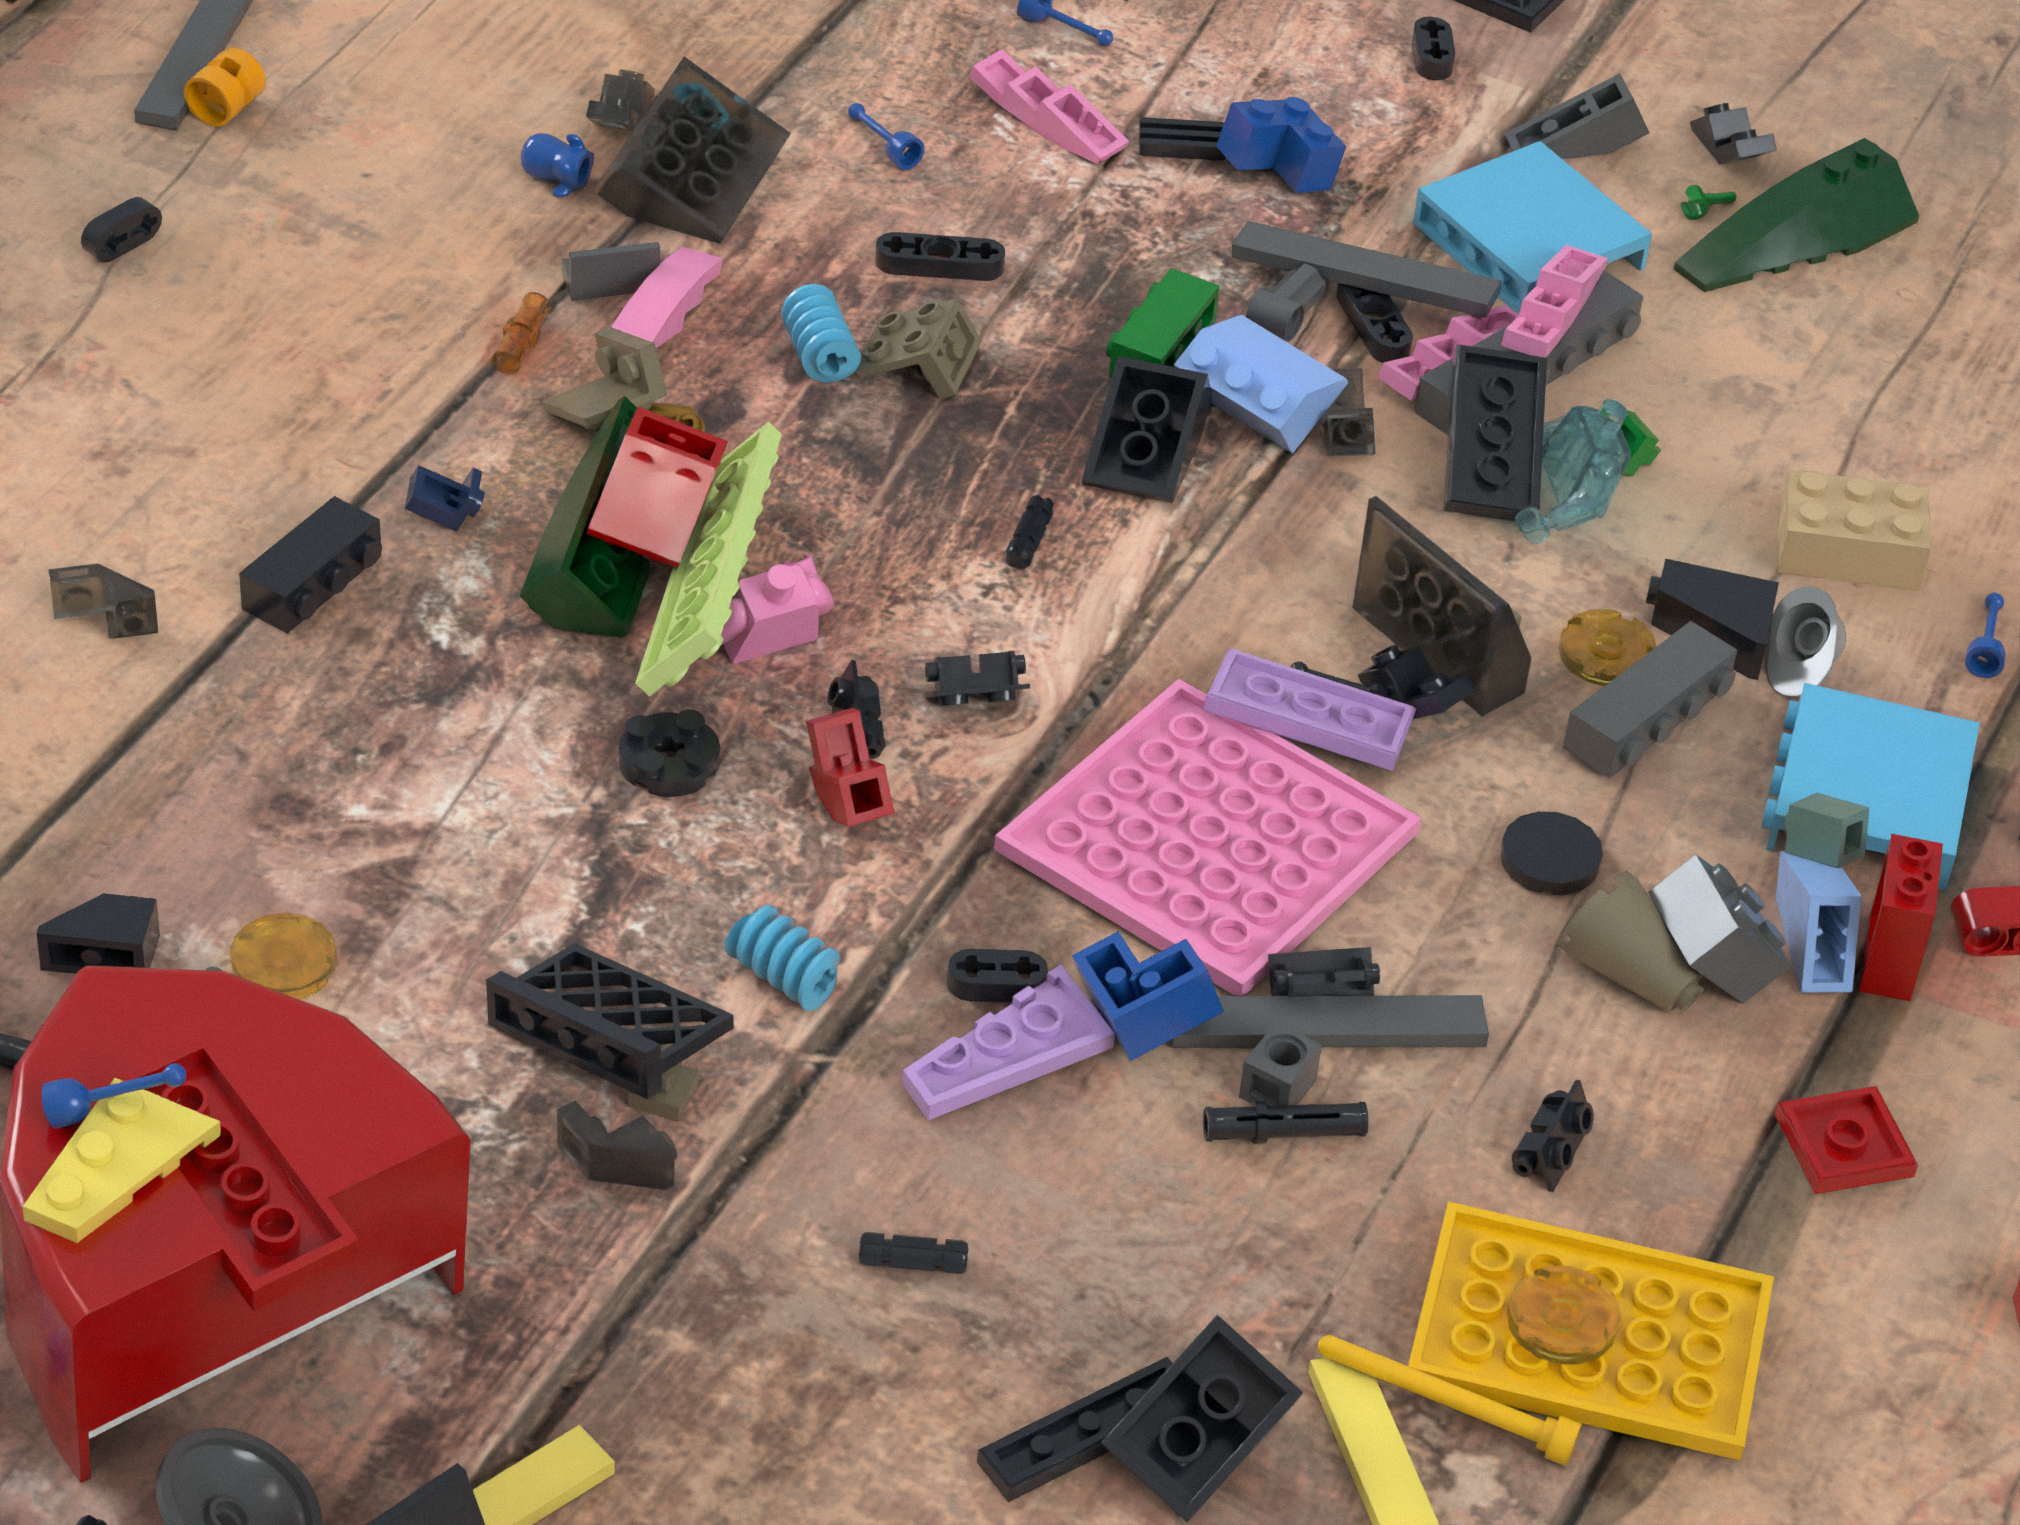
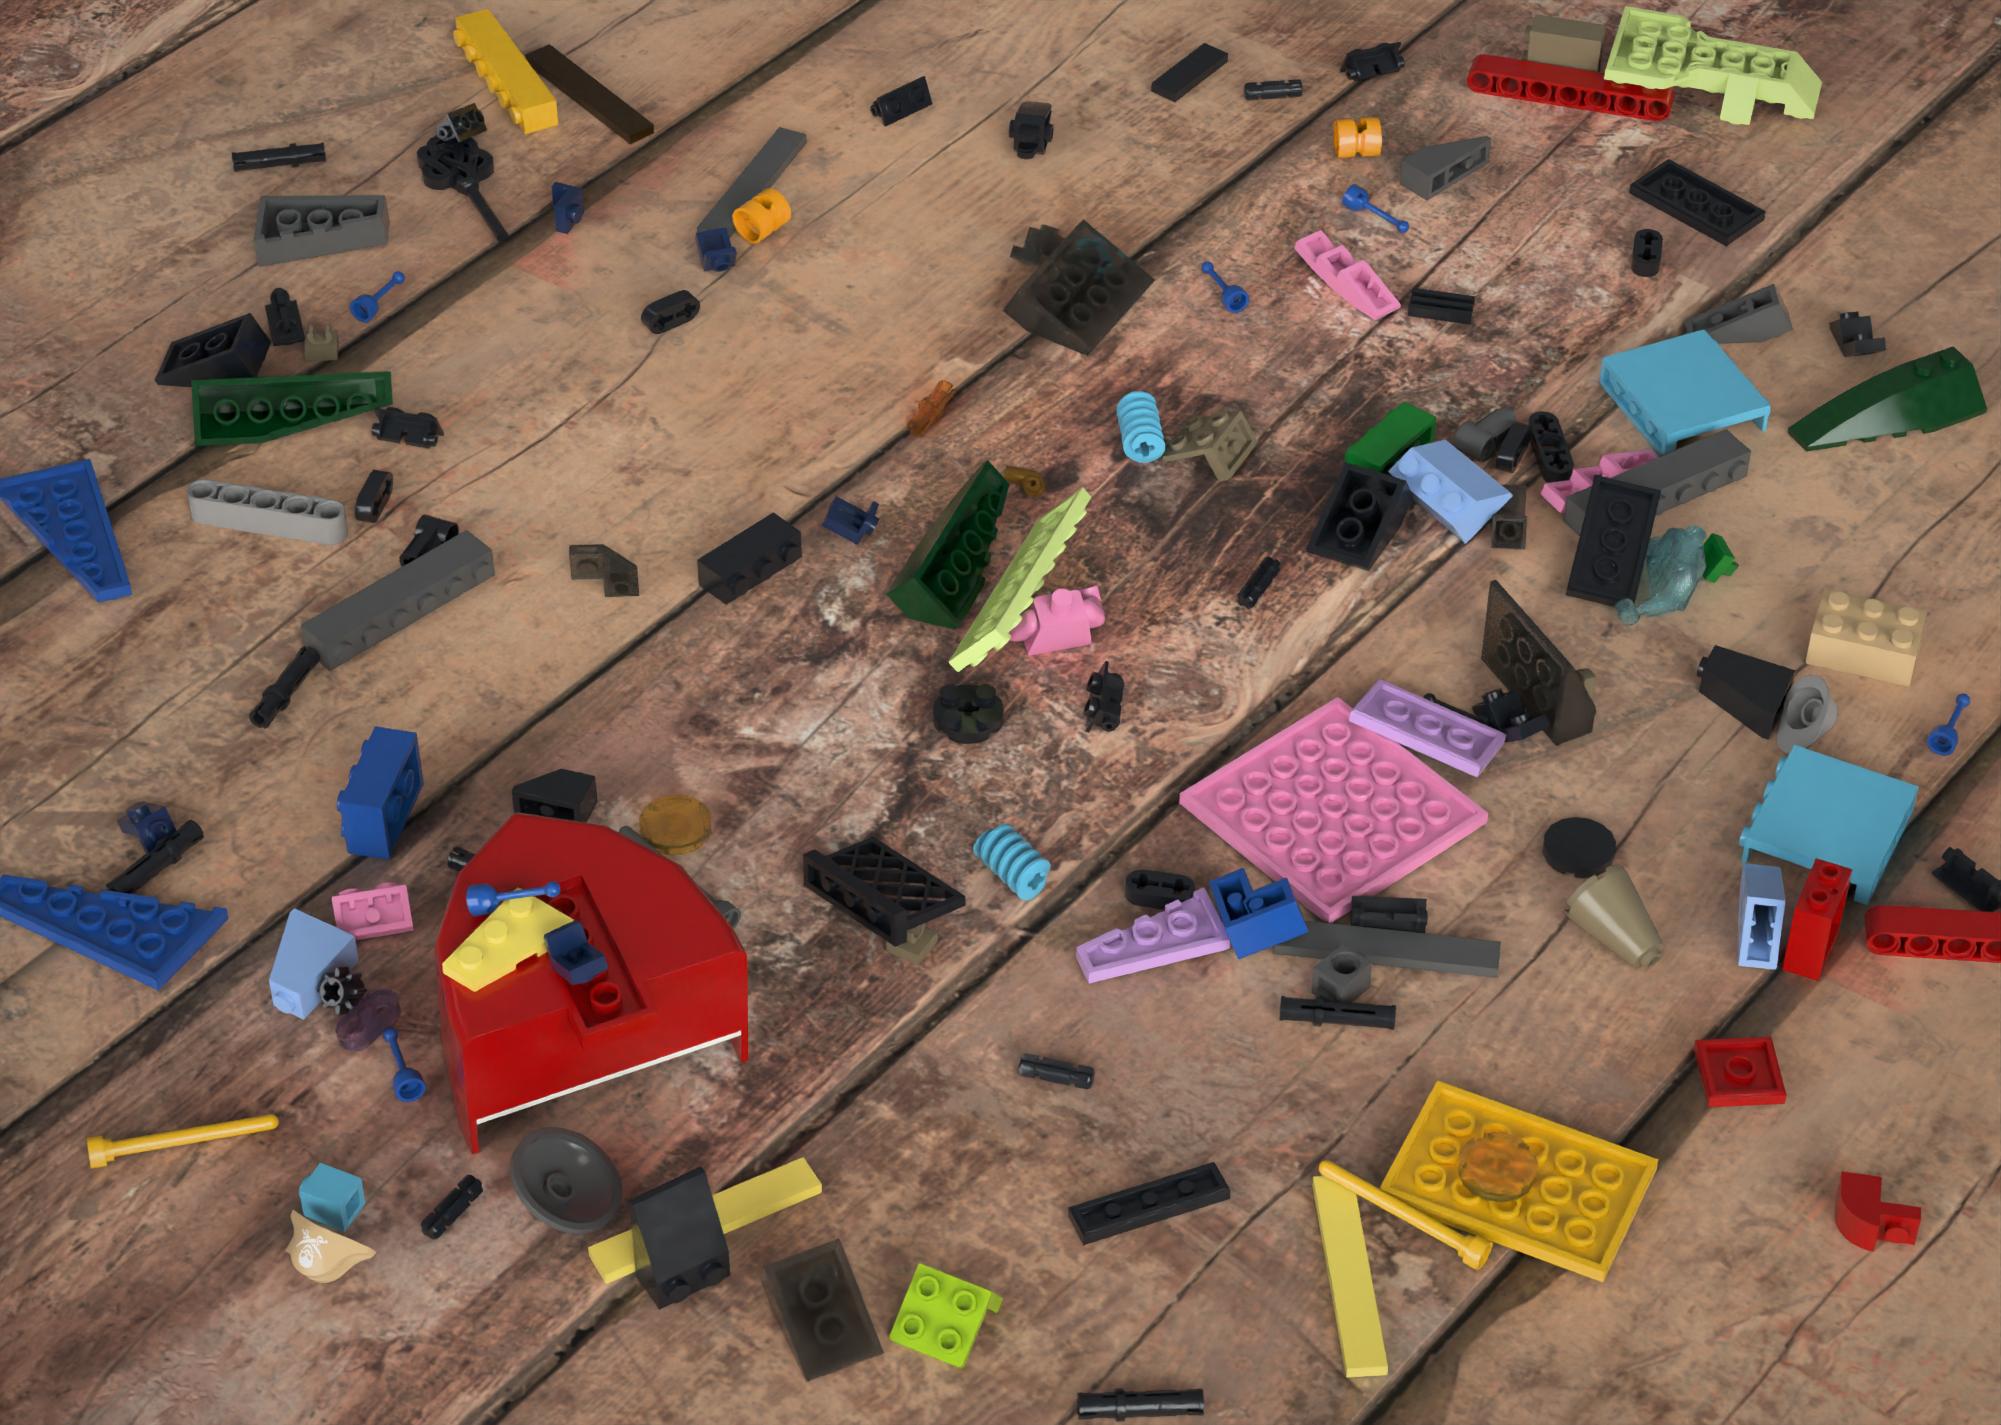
camera: 15 degrees right, 0 degrees up
(168, 138) = (715, 250): none -> dark blue bracket
(219, 1171) = (573, 955): none -> dark blue bracket
(555, 160) = (984, 287): blue animal -> none
(609, 270) = (1005, 370): dark grey panel -> none
(626, 1156) = (872, 983): clear smoke slope -> none
(629, 371) = (998, 448): dark tan bracket -> none
(657, 487) = (994, 526): slope -> none
(668, 293) = (1033, 394): bright pink slope -> none
(843, 775) = (1083, 739): red brick -> none
(969, 256) = (1271, 382): black beam -> none
(996, 677) = (1178, 681): black hinge -> none
(1202, 1418) = (1224, 1205): black slope -> none
(1284, 138) = (1511, 311): blue brick -> none
(1327, 318) = (1513, 447): none -> black beam
(1368, 269) = (1551, 413): dark grey tile -> none
(1554, 302) = (1680, 450): bright pink slope -> none
(1554, 1135) = (1529, 1046): black hinge -> none
(1603, 645) = (1660, 705): clear yellow tile -> none
(1650, 699) = (1678, 745): dark grey brick -> none
(1700, 202) = (1818, 384): green hand -> none
(1721, 928) = (1681, 913): dark grey brick -> none
(1826, 830) = (1777, 851): sand green brick -> none

